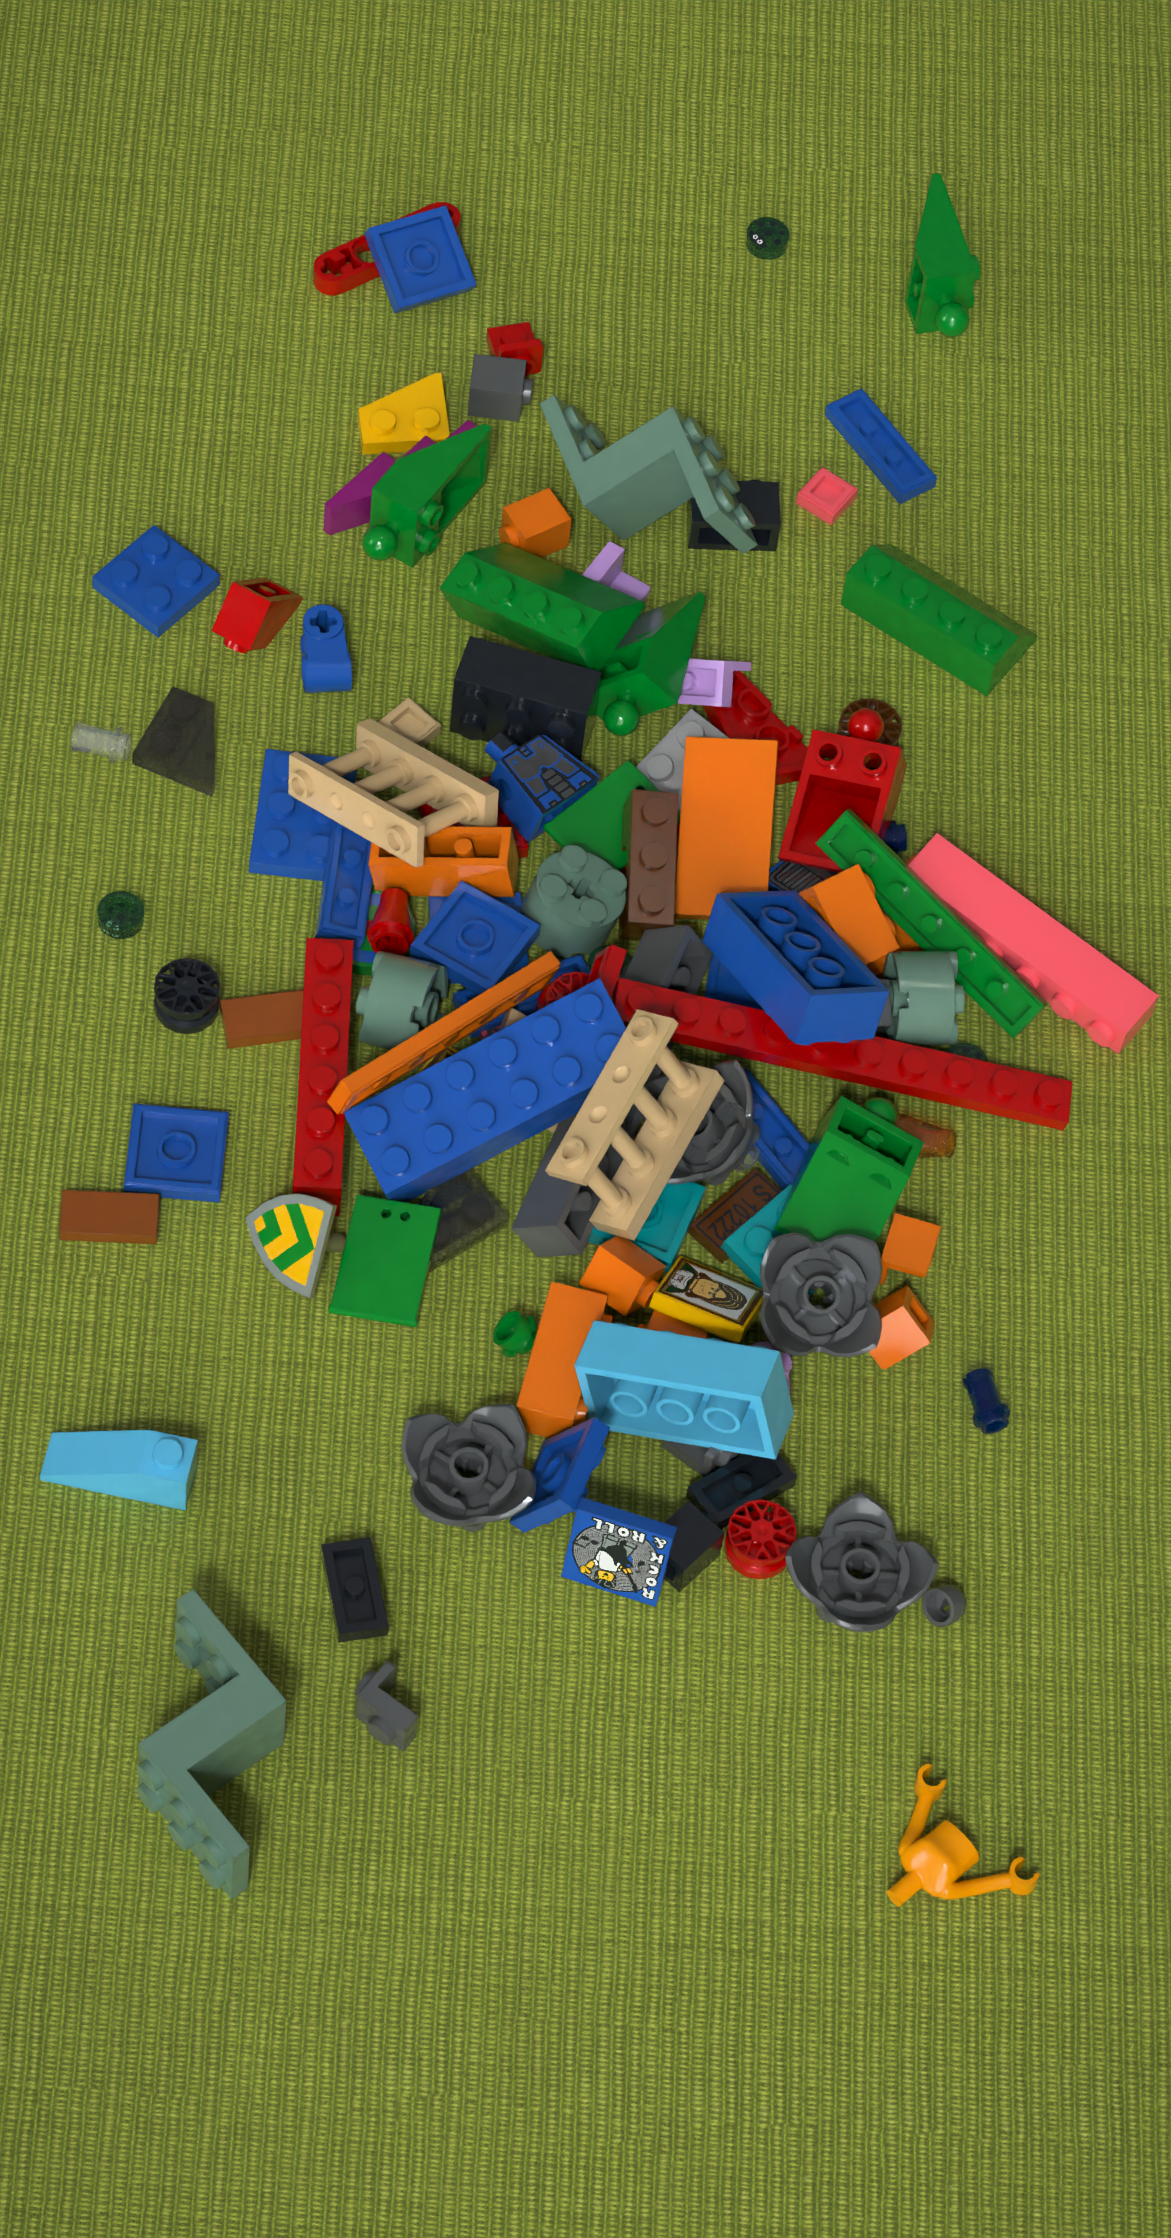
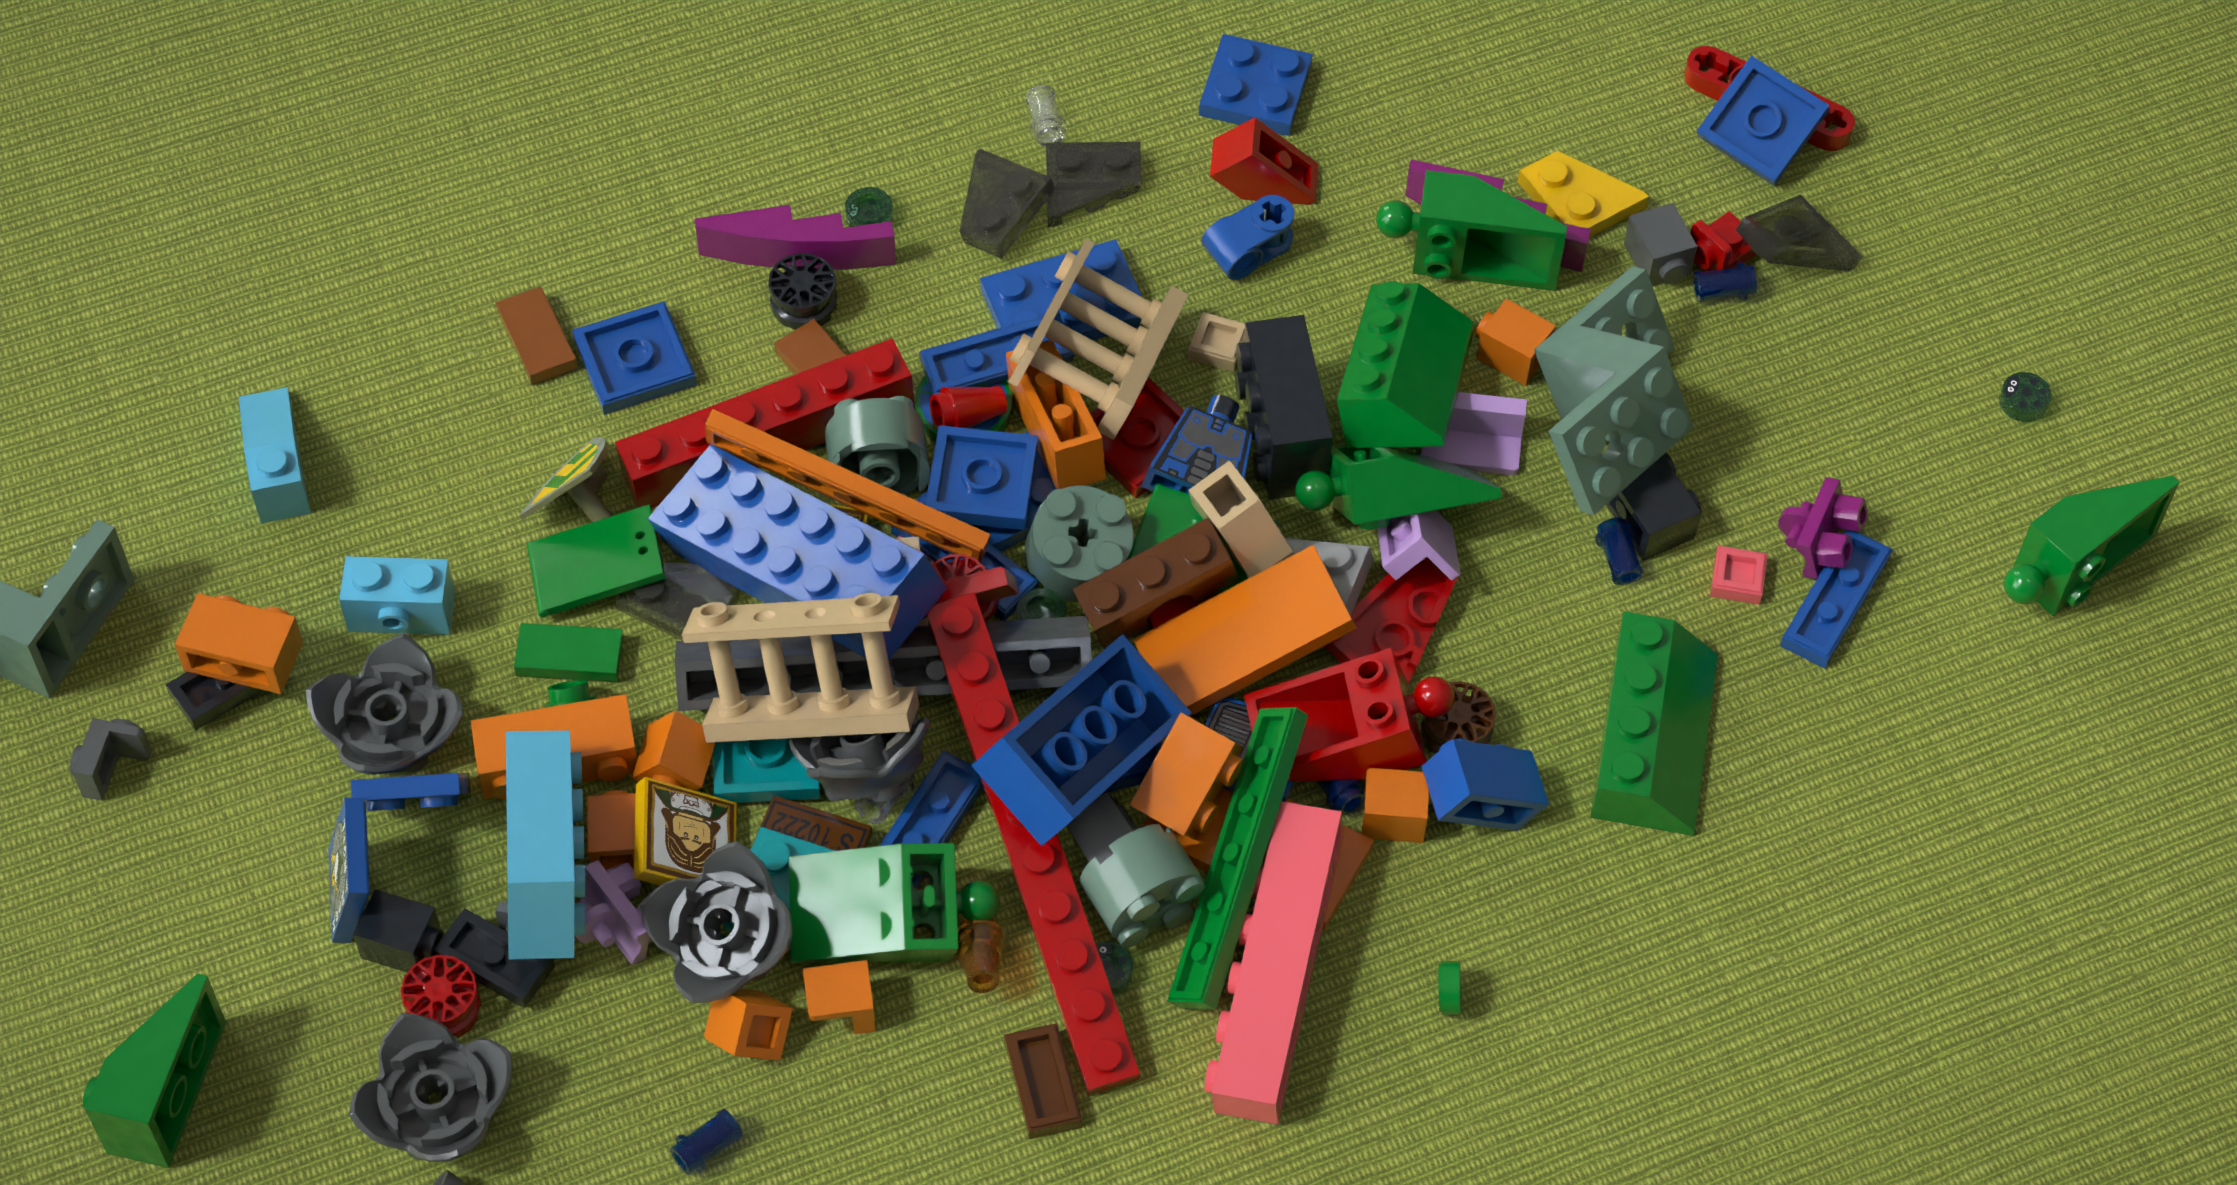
camera: 70 degrees right, 0 degrees up
(127, 984) = (771, 234): none -> magenta slope
(176, 813) = (1001, 202): none -> clear smoke wing
(342, 1550) = (239, 642): none -> orange brick
(344, 1421) = (397, 595): none -> medium azure brick
(462, 1320) = (568, 652): none -> green tile
(542, 297) = (1797, 236): none -> clear smoke wing
(558, 357) = (1725, 283): none -> clear blue pin
(618, 768) = (1240, 520): none -> tan slope
(755, 1768) = (156, 1076): none -> green slope
(769, 558) = (1619, 550): none -> clear blue pin
(814, 406) = (1816, 527): none -> magenta hips
(928, 802) = (1395, 805): none -> orange panel
(945, 736) = (1484, 785): none -> blue brick
(1040, 1152) = (1043, 1081): none -> reddish brown tile
(1099, 848) = (1449, 987): none -> green tile

